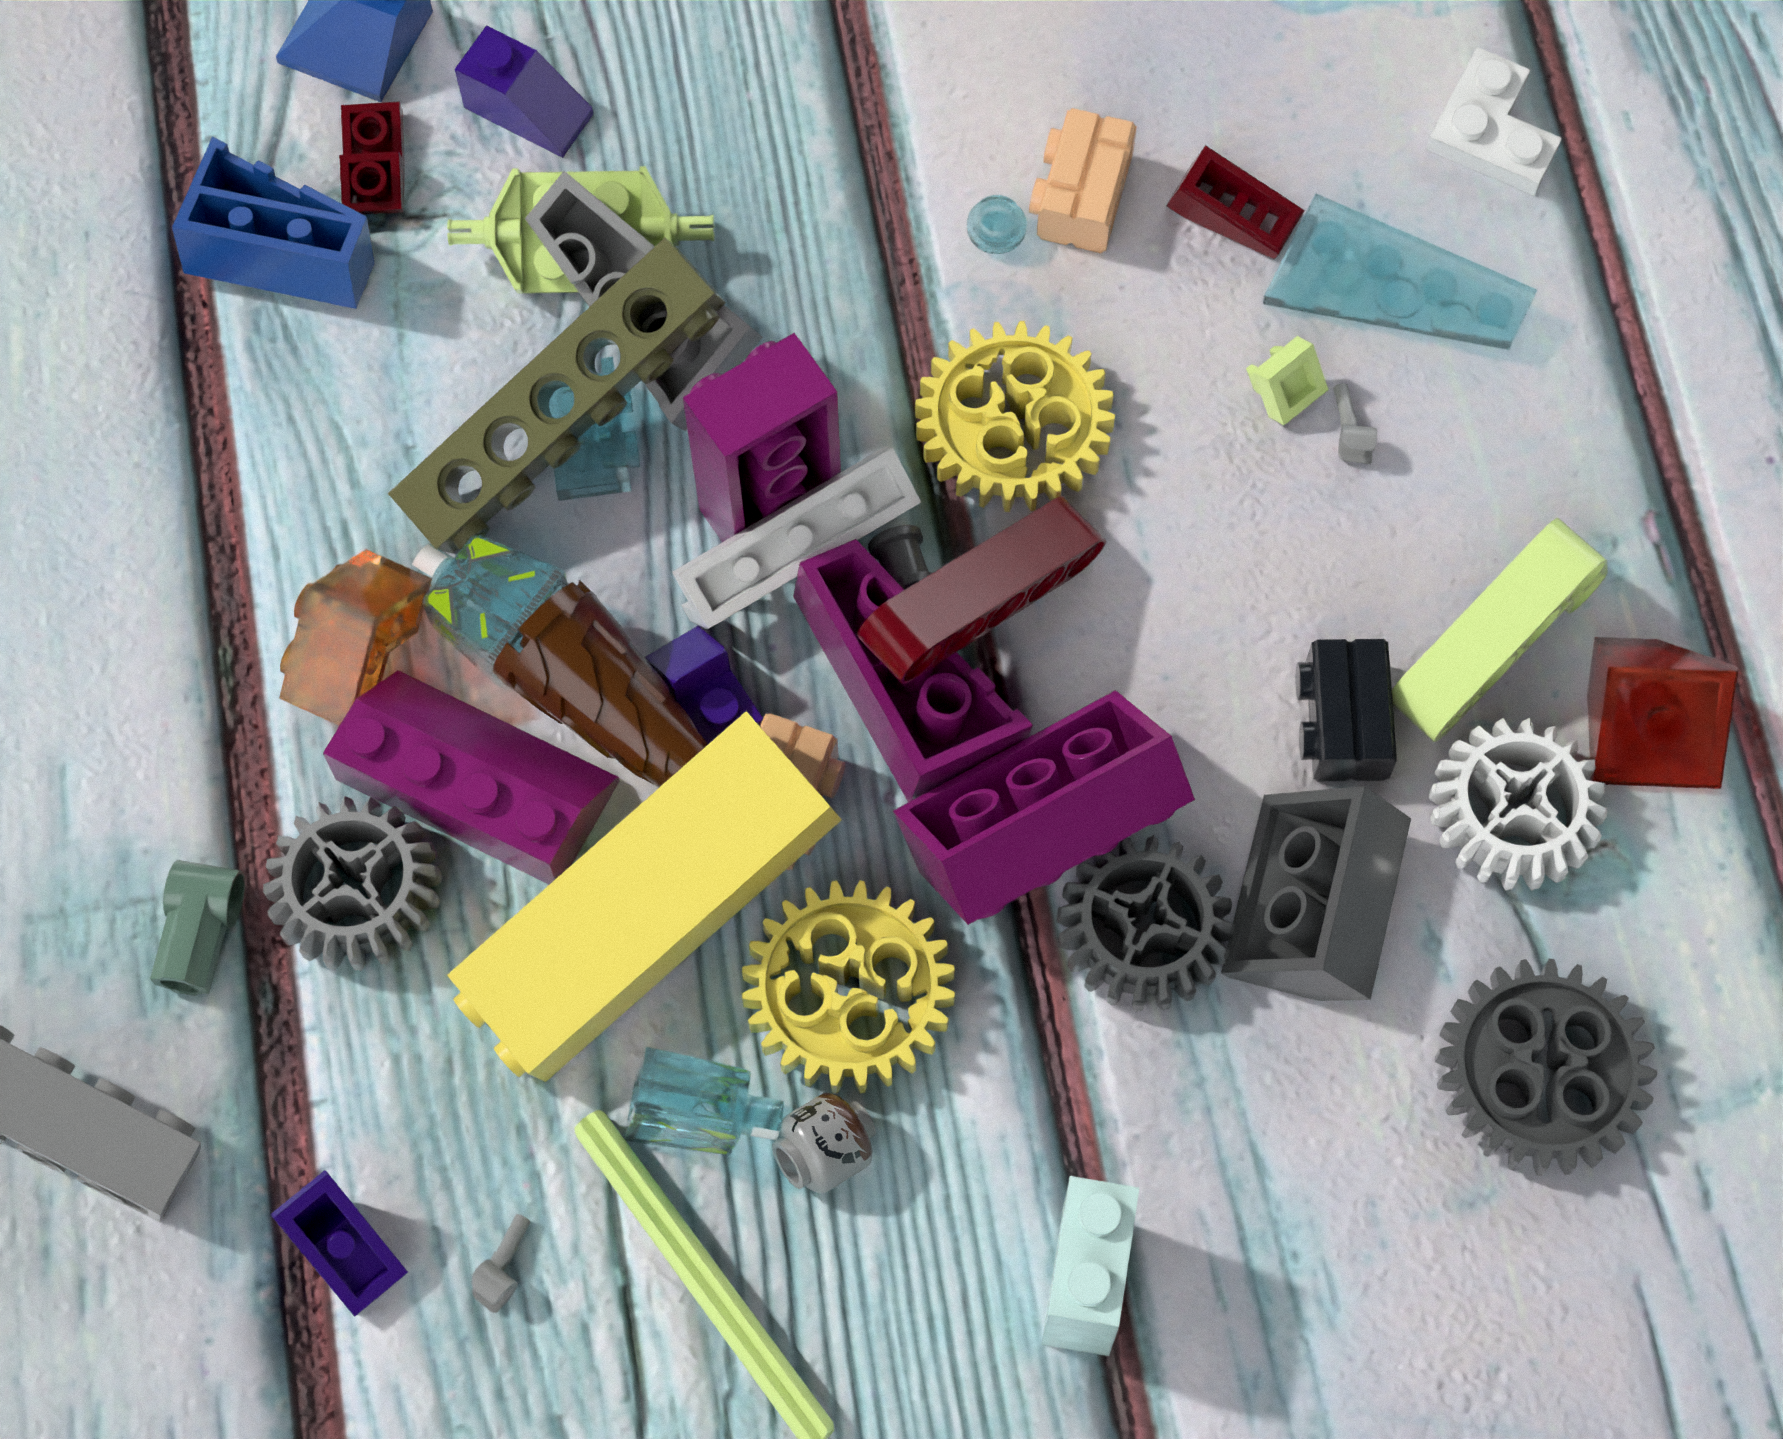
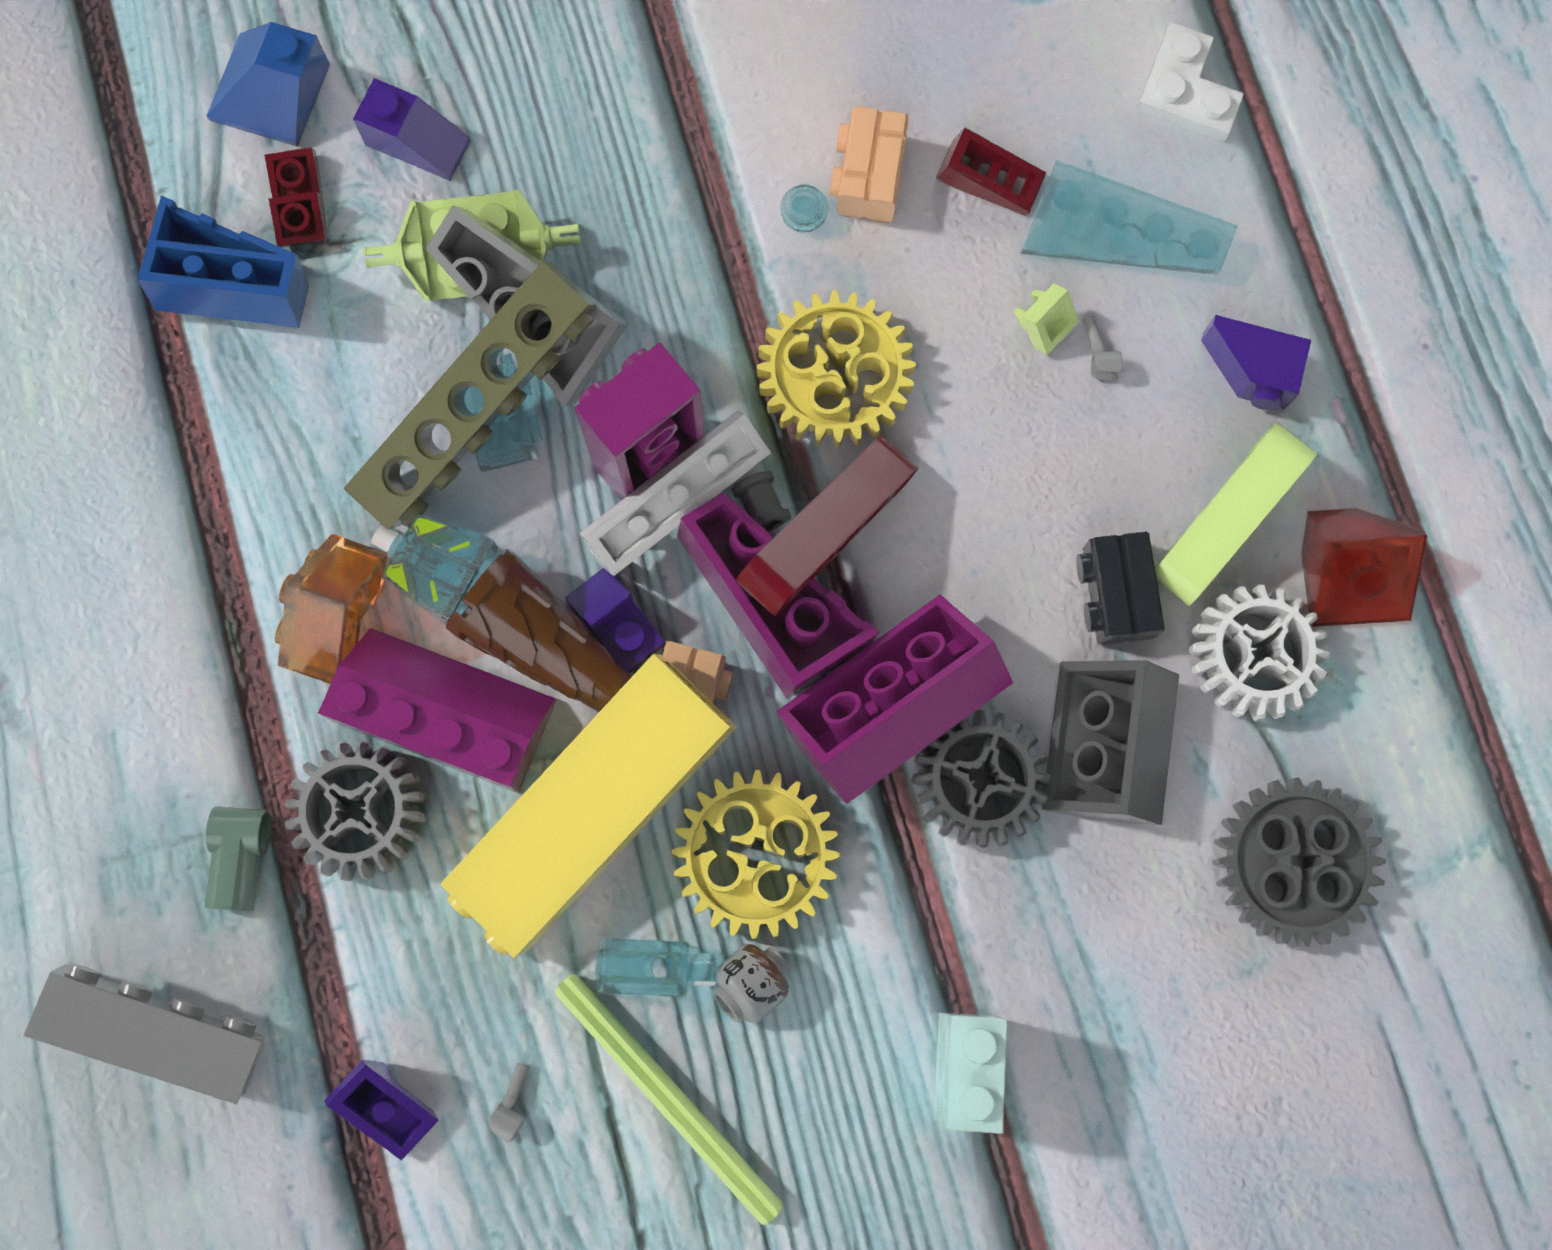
camera: 10 degrees left, 10 degrees up
(1548, 453) = (1257, 361): none -> dark purple slope

